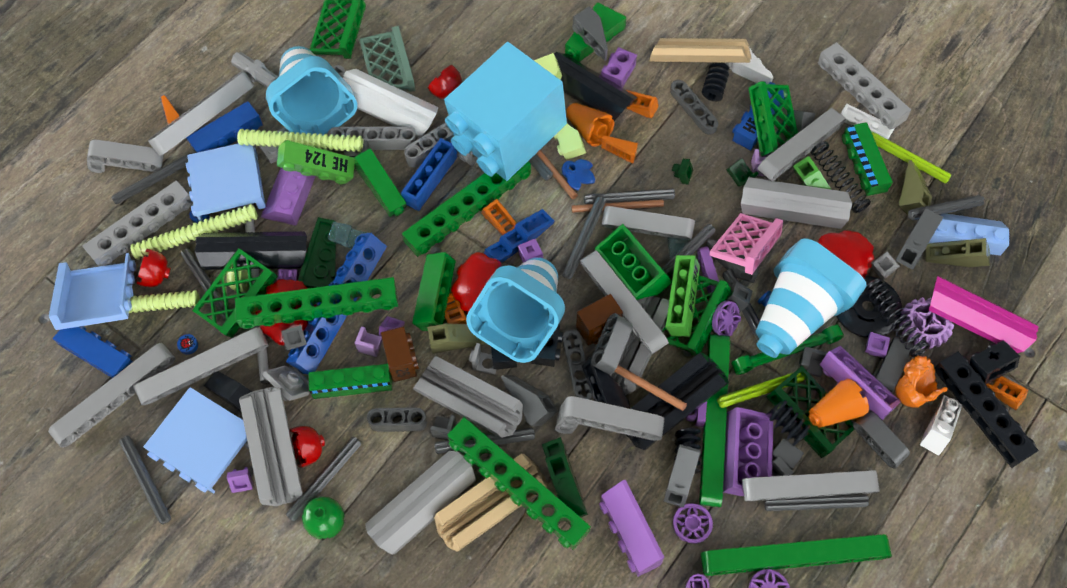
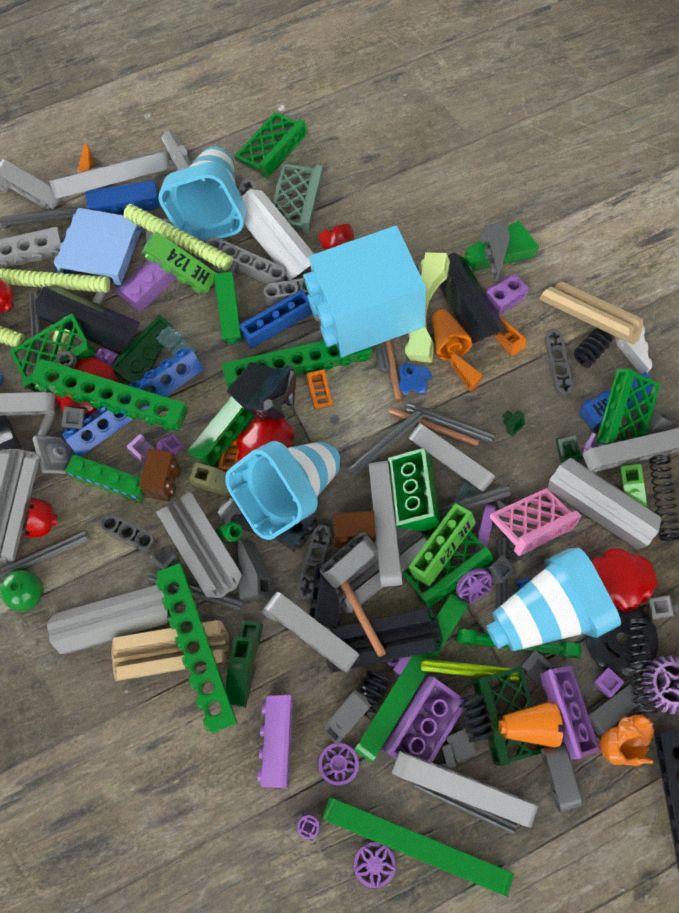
camera: 25 degrees right, 5 degrees up
(254, 286) = (61, 355): none -> dark grey bush
(457, 237) = (264, 390): none -> black helmet
(491, 372) = (231, 531): none -> green cone
(523, 232) = (327, 415): blue slope -> none
(529, 250) = (328, 429): medium lavender piece -> none
(941, 425) = (629, 793): white slope -> none

